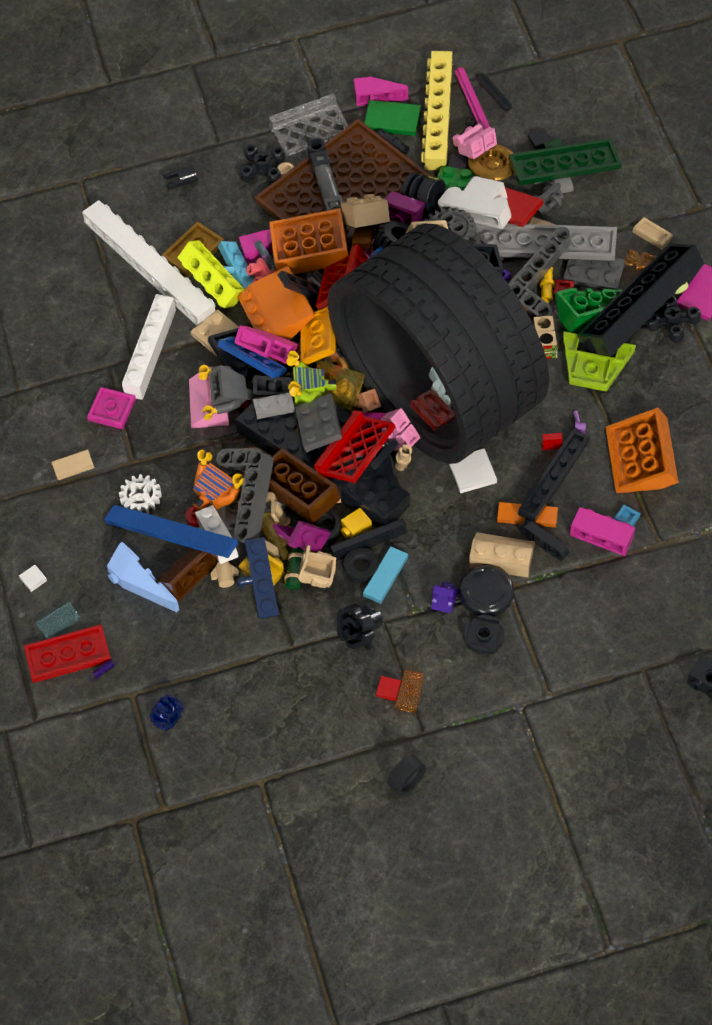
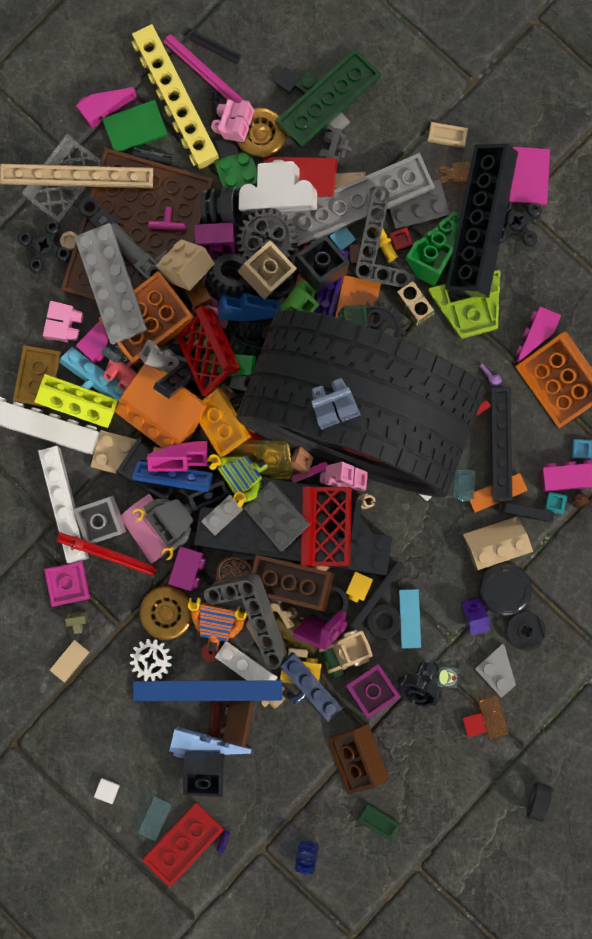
camera: 35 degrees left, 25 degrees up
(99, 436) = (77, 621): none -> olive tile
(122, 597) = (203, 774): none -> black brick
(142, 372) = (82, 545): none -> red axle
(165, 564) = (214, 722): none -> clear red axle
(170, 369) = (100, 520): none -> light grey brick
(180, 472) = (165, 613): none -> pearl gold wheel
(217, 434) = (187, 568): none -> magenta brick
(239, 219) = (60, 322): none -> bright pink hips
(250, 724) = (379, 822): none -> dark green tile
(266, 660) = (358, 759): none -> reddish brown slope
(296, 201) = (111, 283): none -> light grey plate
(297, 267) = (158, 358): none -> light grey leg
(314, 609) = (372, 690): none -> magenta brick
(321, 124) = (76, 176): none -> tan tile
(372, 189) = (167, 224): none -> dark pink piece
(389, 638) = (448, 677): none -> tile
(401, 276) = (324, 404): none -> sand blue hips
(437, 656) = (497, 671): none -> light grey wing
(501, 489) = (464, 484): none -> clear light blue brick
(513, 264) = (342, 238): none -> medium azure tile
(577, 547) = (555, 502): none -> teal tile
(600, 555) = (580, 500): none -> reddish brown plate
(647, 400) = (542, 327): none -> dark pink slope

